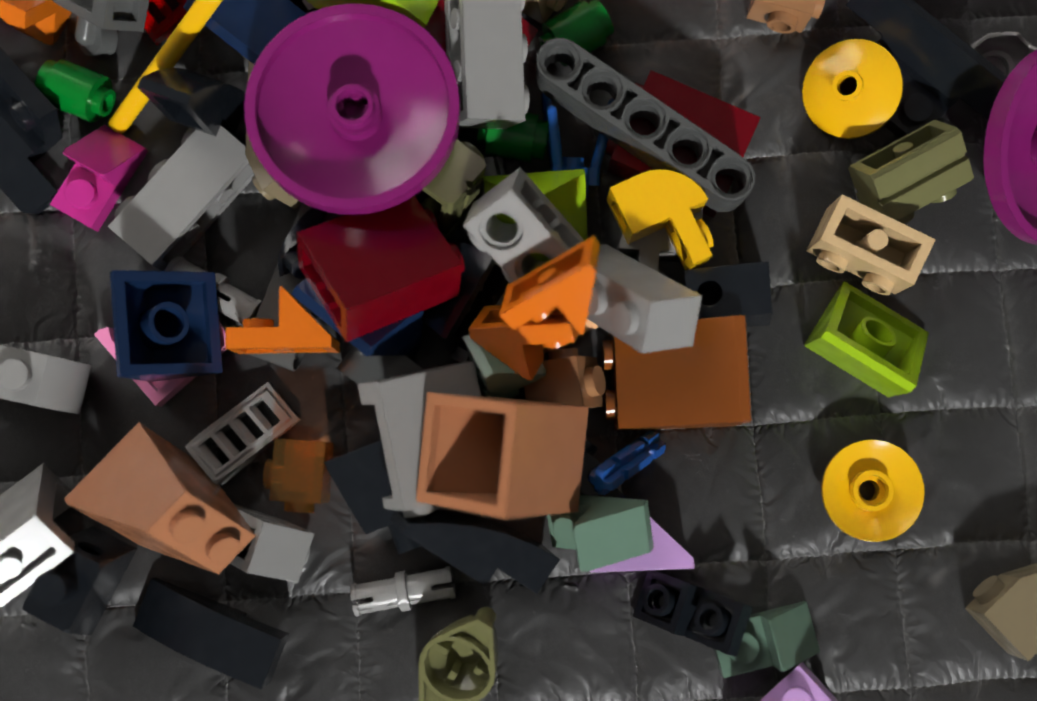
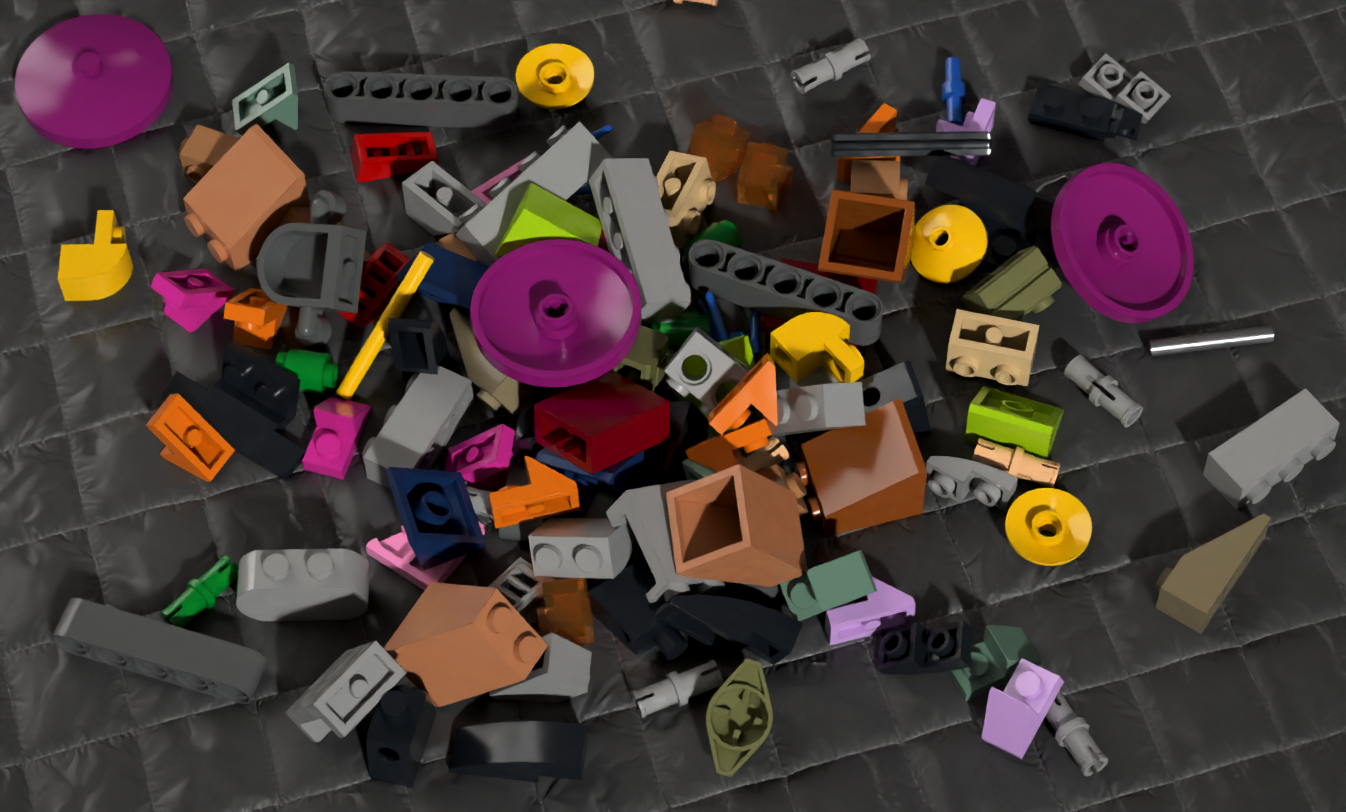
camera: 15 degrees left, 25 degrees down
(244, 253) = (483, 458): none -> dark pink slope
(323, 405) = (580, 548): none -> light grey brick
(626, 462) = (839, 543): blue axle -> none
(760, 82) = (868, 236): none -> dark orange slope
(784, 402) = (958, 476): none -> light grey slope
(856, 396) = (1017, 463): none -> light nougat pin
(998, 355) = (1122, 408): none -> light grey pin

